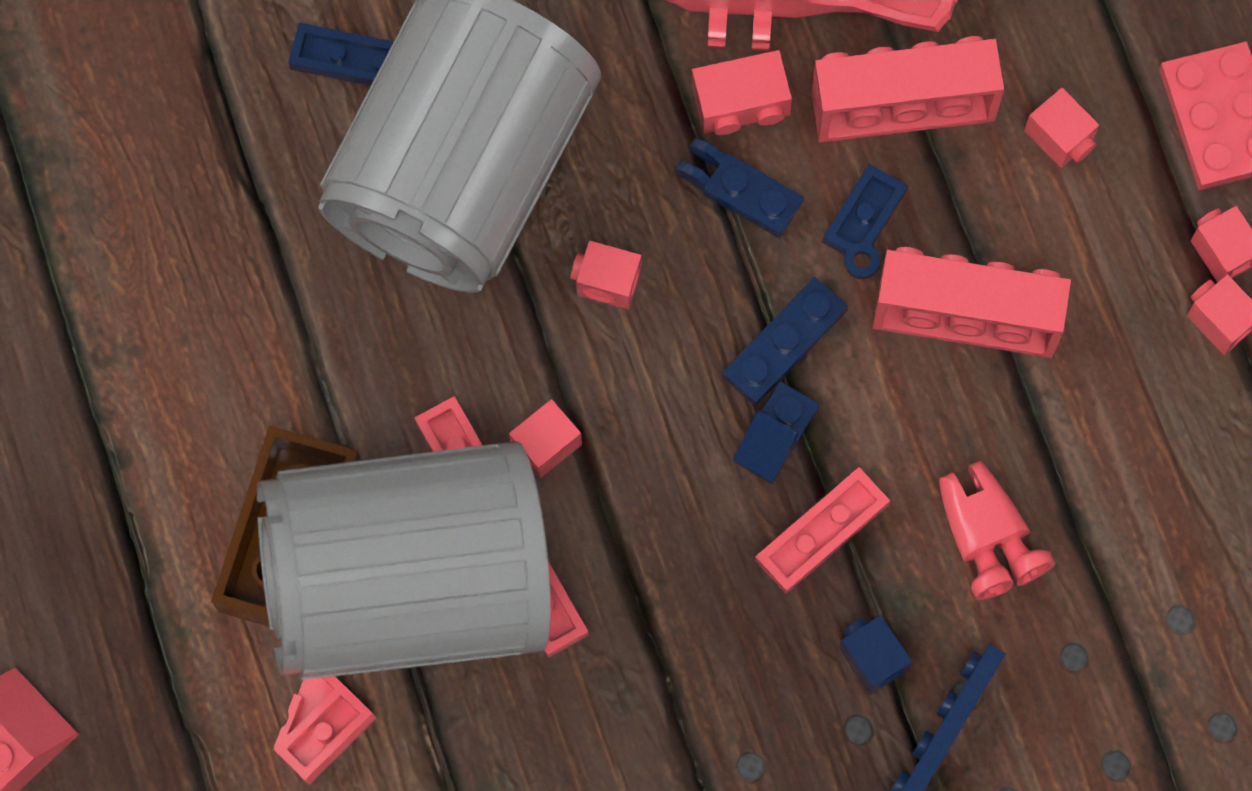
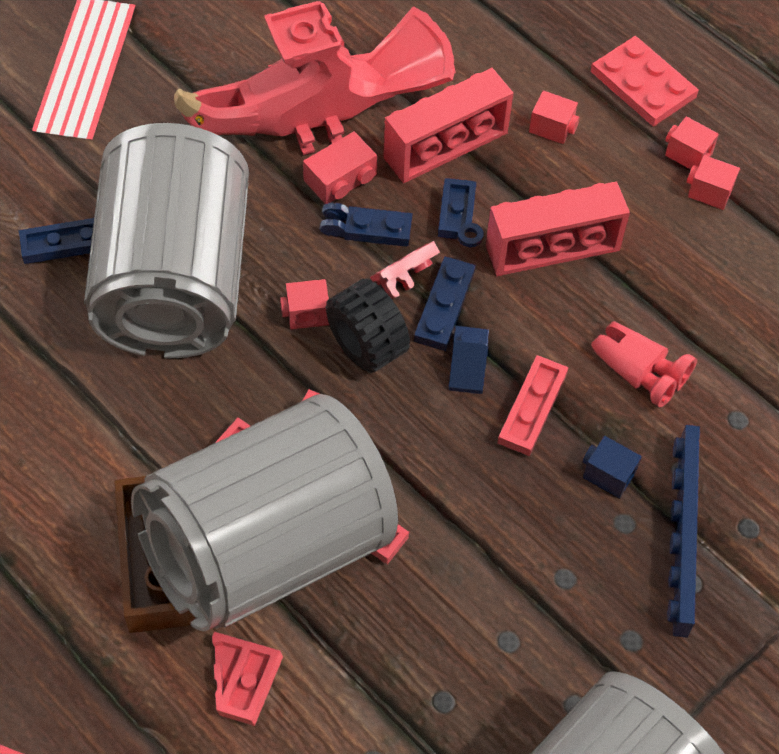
camera: 30 degrees left, 15 degrees down
(660, 345) = (368, 325): none -> black tyre
(775, 267) = (398, 271): none -> plate

